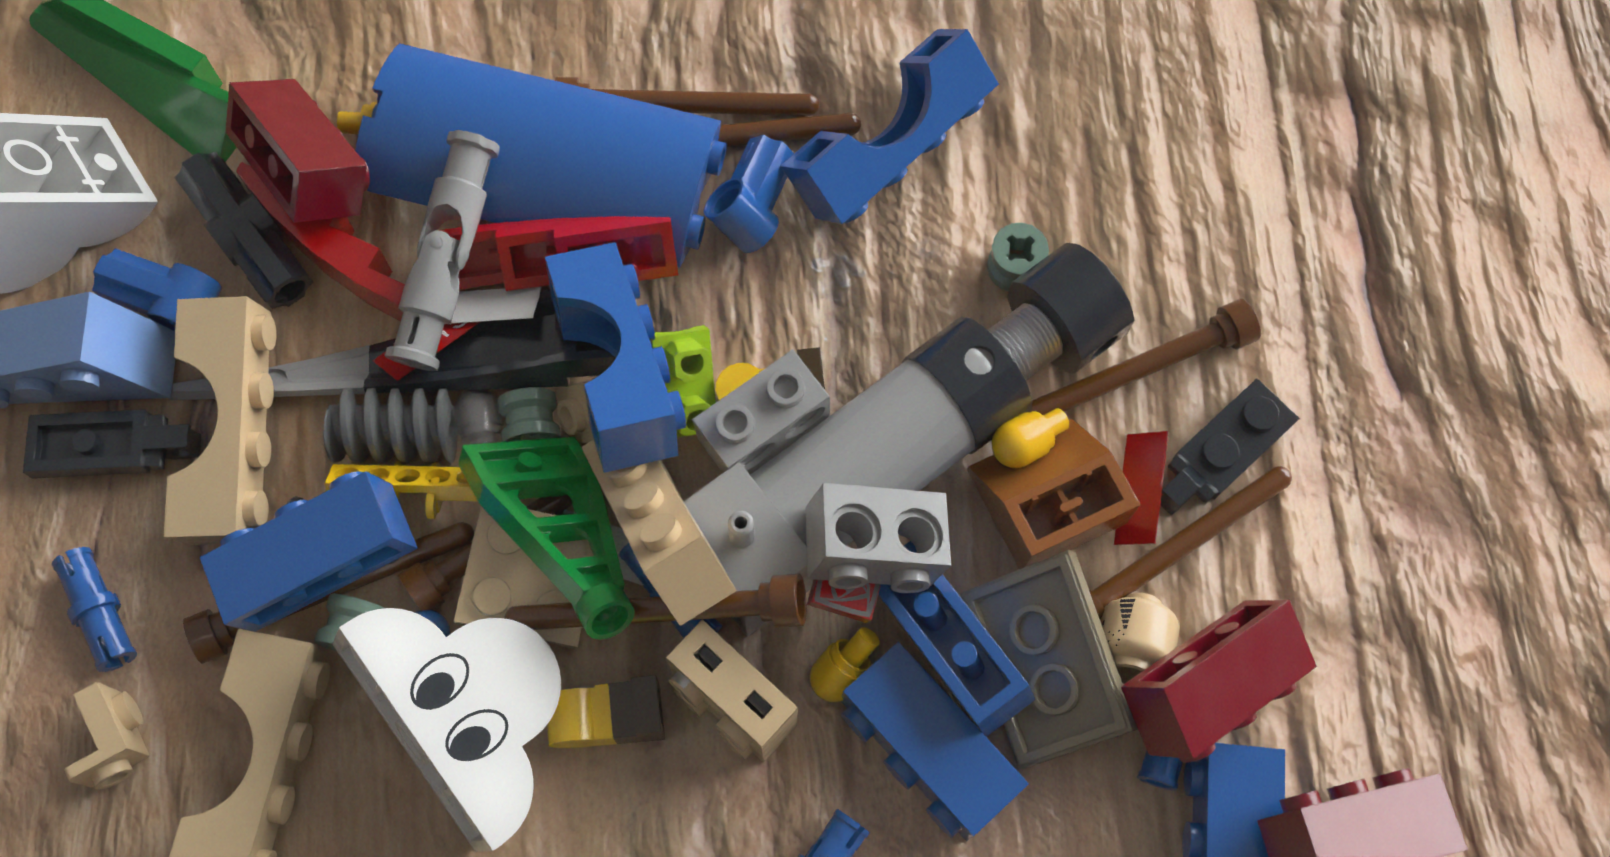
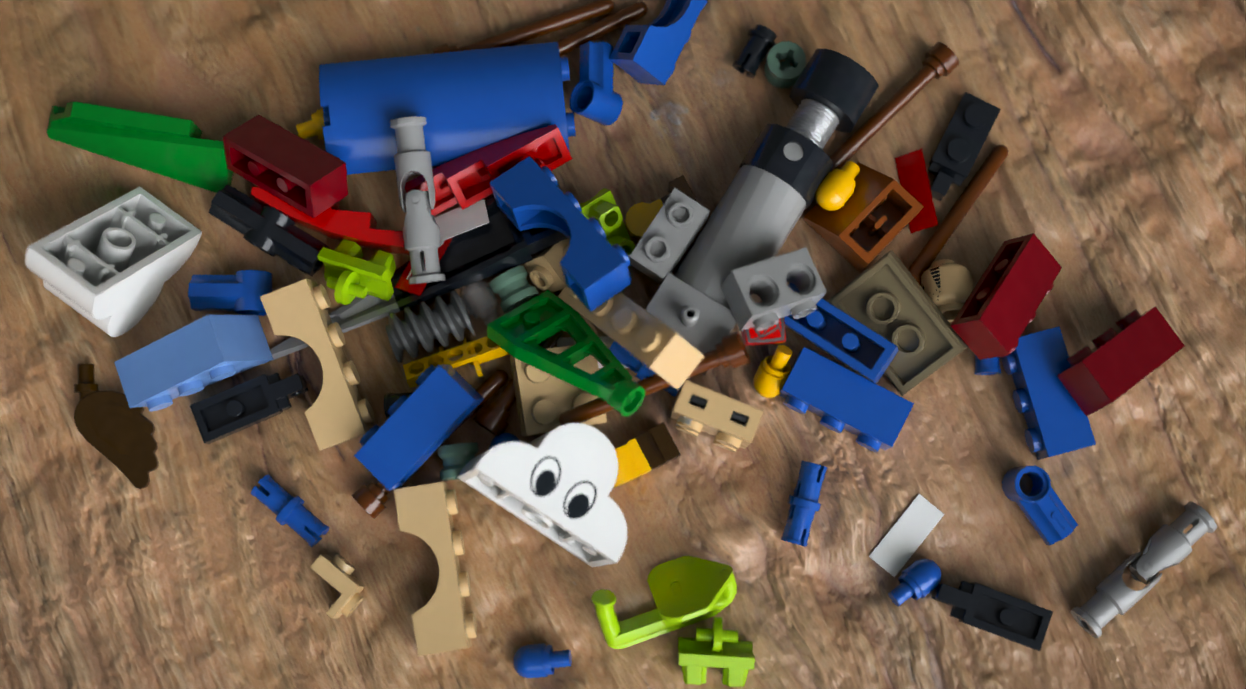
camera: 20 degrees left, 10 degrees up
(323, 324) = (357, 277): none -> lime hips
(983, 225) = (755, 50): none -> black pin

